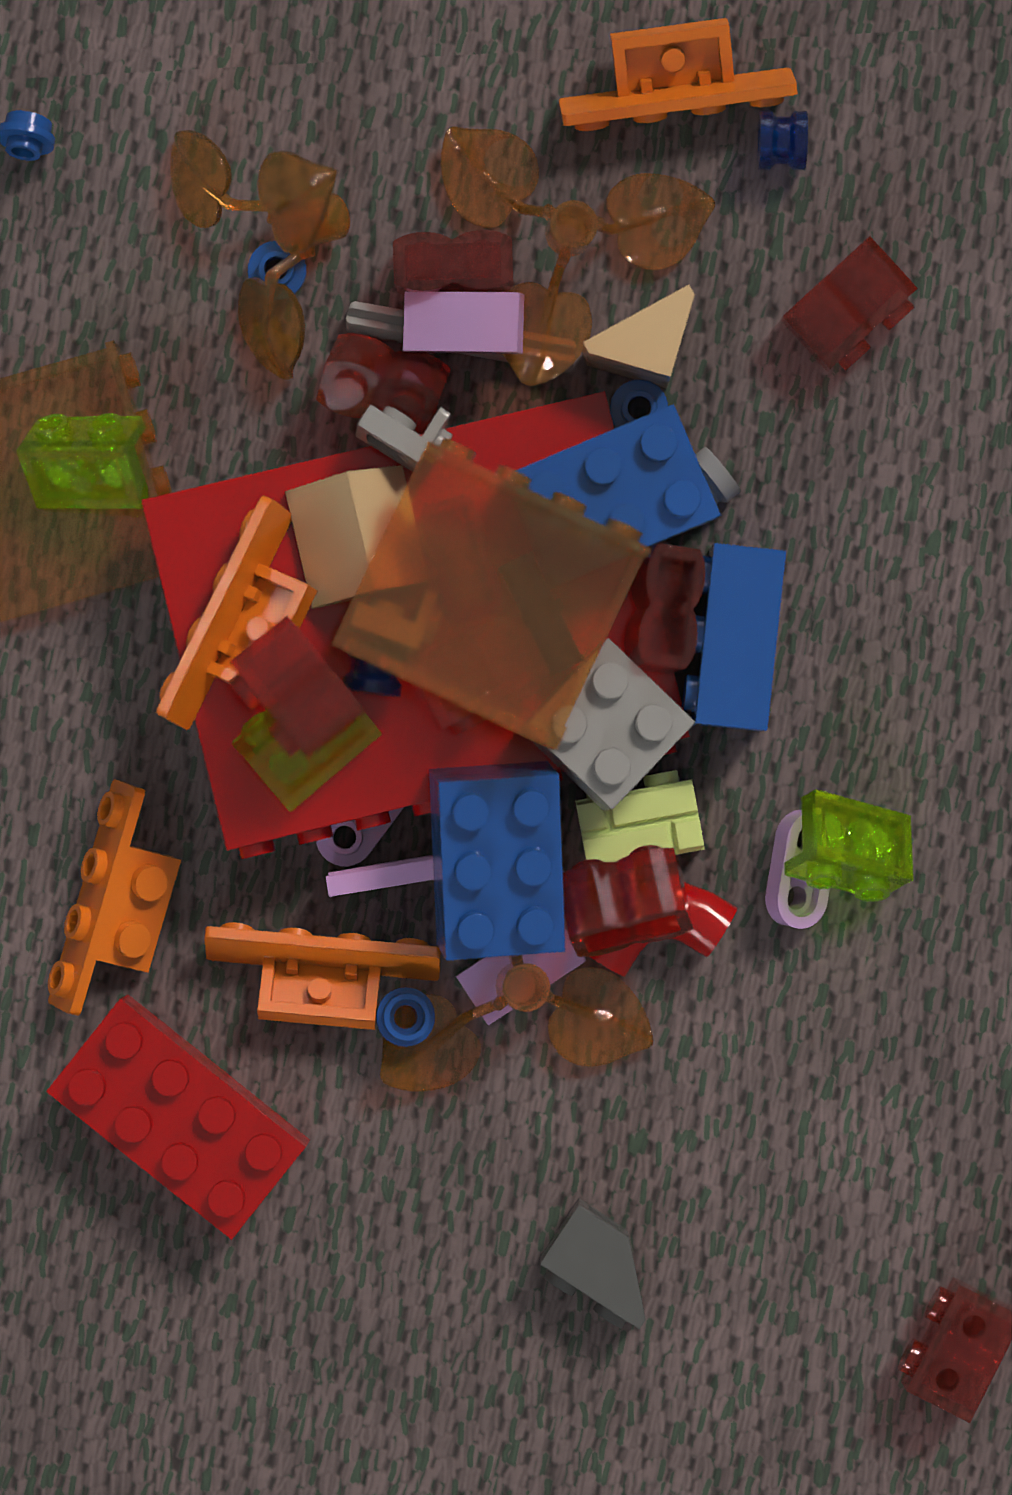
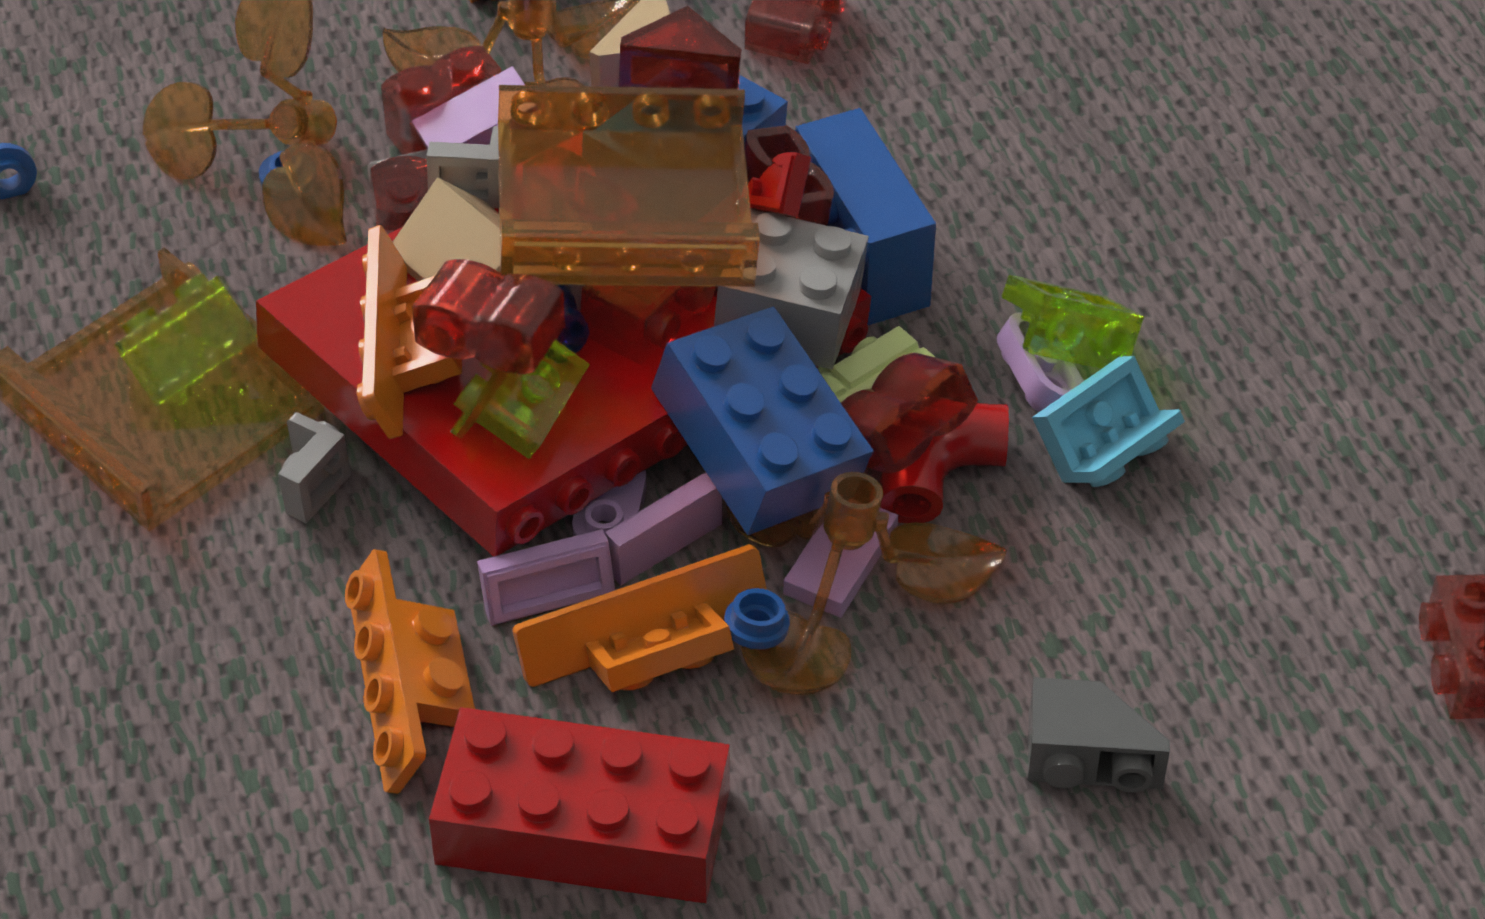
camera: 30 degrees left, 40 degrees down
(130, 658) = (314, 468): none -> light grey bracket
(266, 876) = (546, 577): none -> lavender tile
(633, 448) = (679, 53): none -> clear red slope
(636, 648) = (781, 185): none -> red tile
(810, 973) = (1104, 424): none -> medium azure bracket

